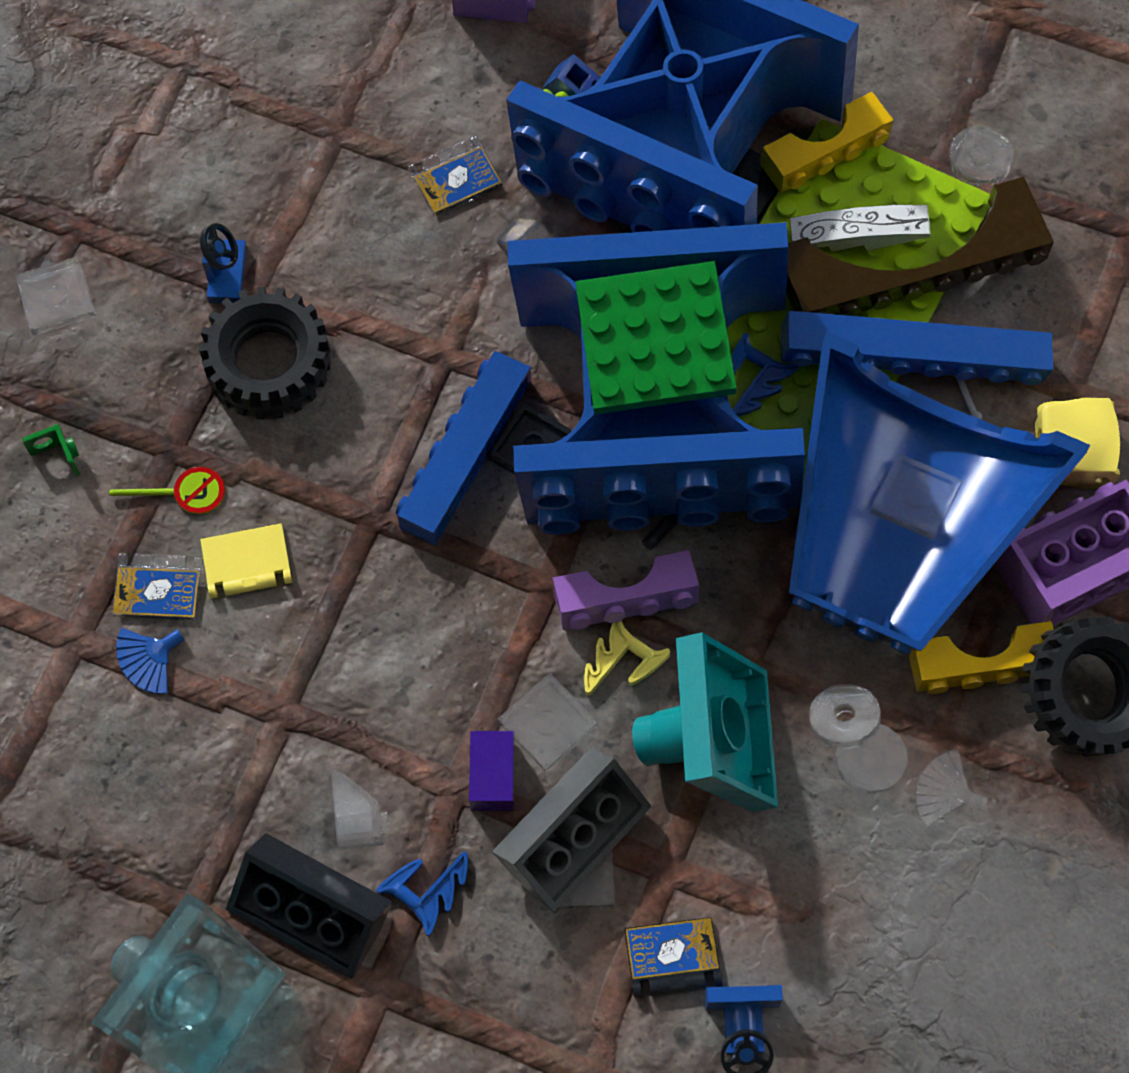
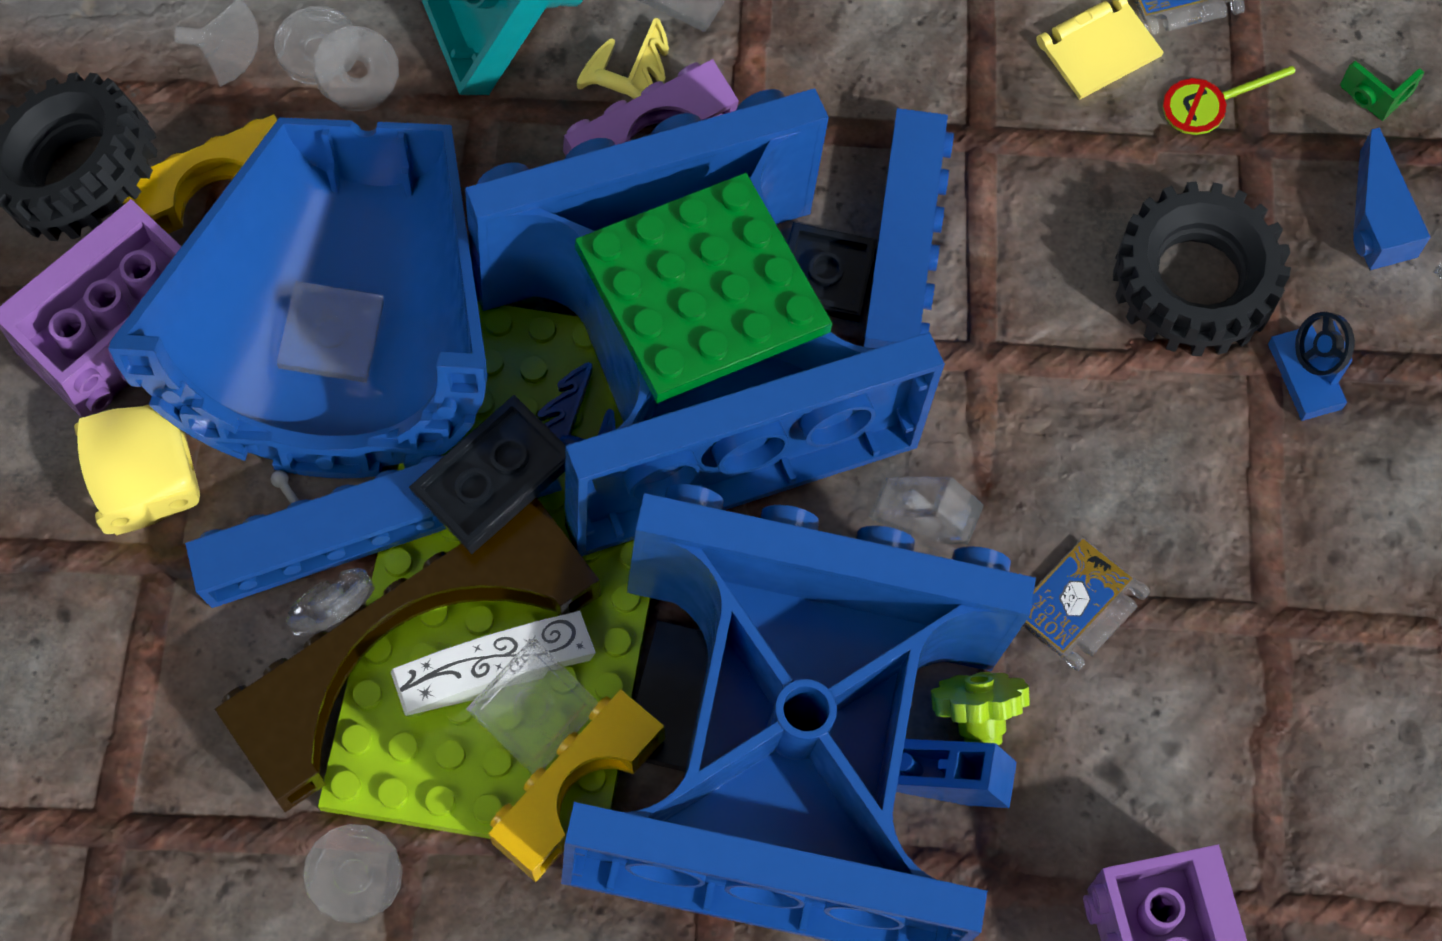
camera: 160 degrees right, 0 degrees up
(110, 359) = (1386, 217): none -> blue slope
(840, 308) = (492, 474): none -> black tile
(842, 189) = (533, 706): none -> clear tile
(960, 300) = (329, 604): none -> clear tile

